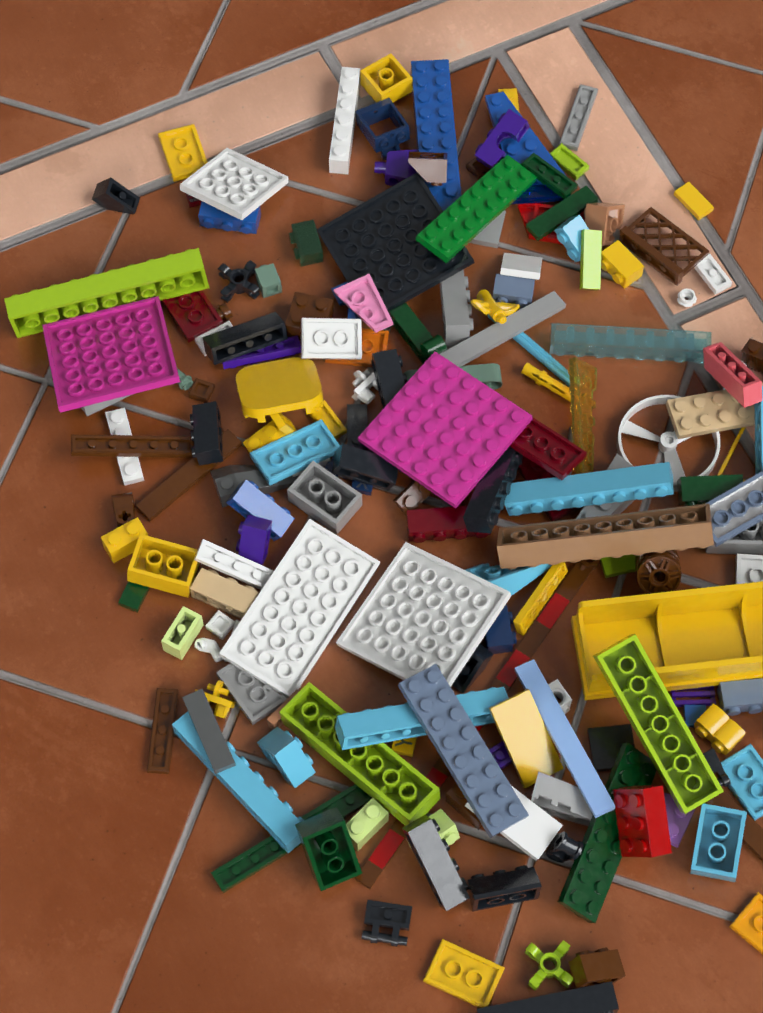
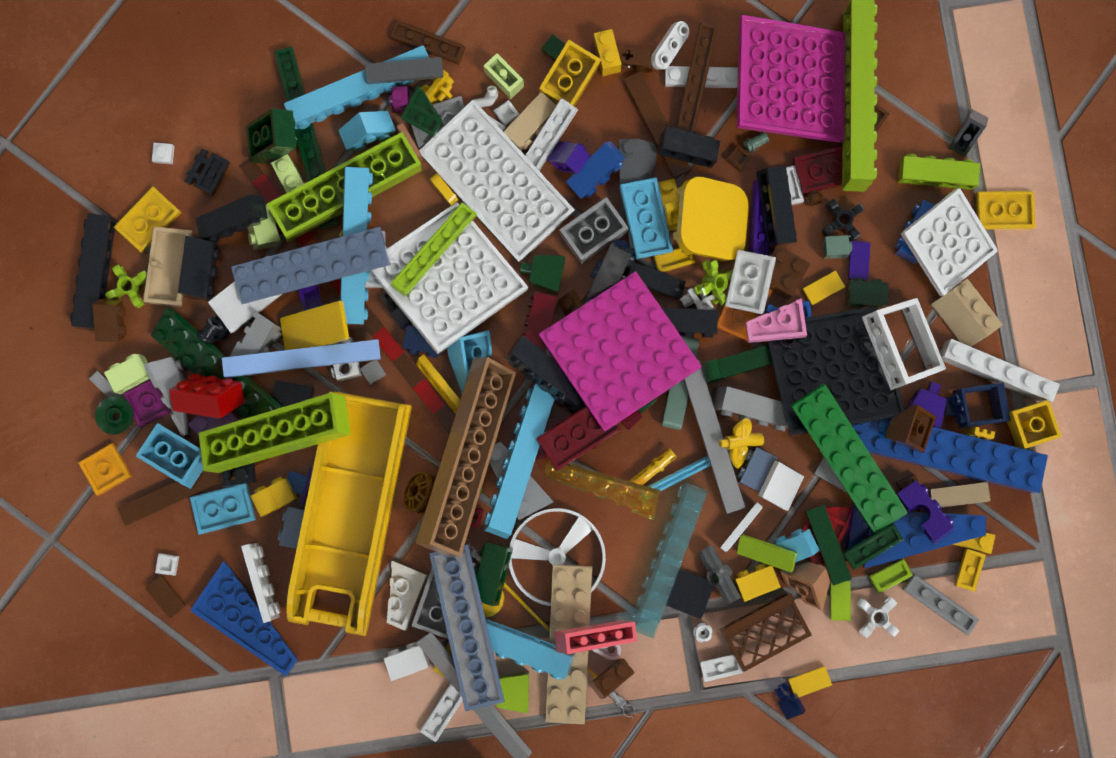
camera: 110 degrees right, 20 degrees up
(100, 482) = (665, 47): none -> white plate
(164, 212) = (939, 172): none -> lime brick
(239, 734) = (399, 98): none -> magenta brick
(251, 700) = (422, 113): none -> dark green wing
(280, 257) = (859, 260): none -> dark purple tile
(299, 156) = (966, 314): none -> tan slope
(312, 282) = (823, 288): none -> yellow tile
(313, 201) = (887, 350): none -> white window
(326, 660) = (443, 189): none -> yellow beam
(341, 372) = (714, 282): none -> lime pin
(380, 983) = (163, 153): none -> white plate
(382, 533) = (545, 272): none -> dark green torso
(399, 639) = (433, 249): none -> lime tile
(411, 117) = (979, 433): none -> yellow tile
(470, 123) = (961, 494): none -> tan tile
(511, 922) = (165, 267): none -> tan container
(538, 101) = (969, 570): none -> yellow plate
(550, 671) = (373, 371): none -> light grey tile
(574, 290) = (741, 527): none -> white tile
(609, 166) = (868, 628): none -> white pin
(612, 193) = (840, 601): none -> lime tile
(627, 295) = (719, 575): none -> dark grey piece
(641, 877) = (166, 375): none -> light grey wedge
(647, 927) = (127, 374): none -> yellowish green brick
(654, 314) = (690, 594): none -> black tile
(669, 901) = (146, 403): none -> magenta tile
(671, 954) = (103, 385): none -> light grey piece
(706, 922) = (105, 415): none -> dark green dish
(721, 210) = (789, 704): none -> clear blue plate

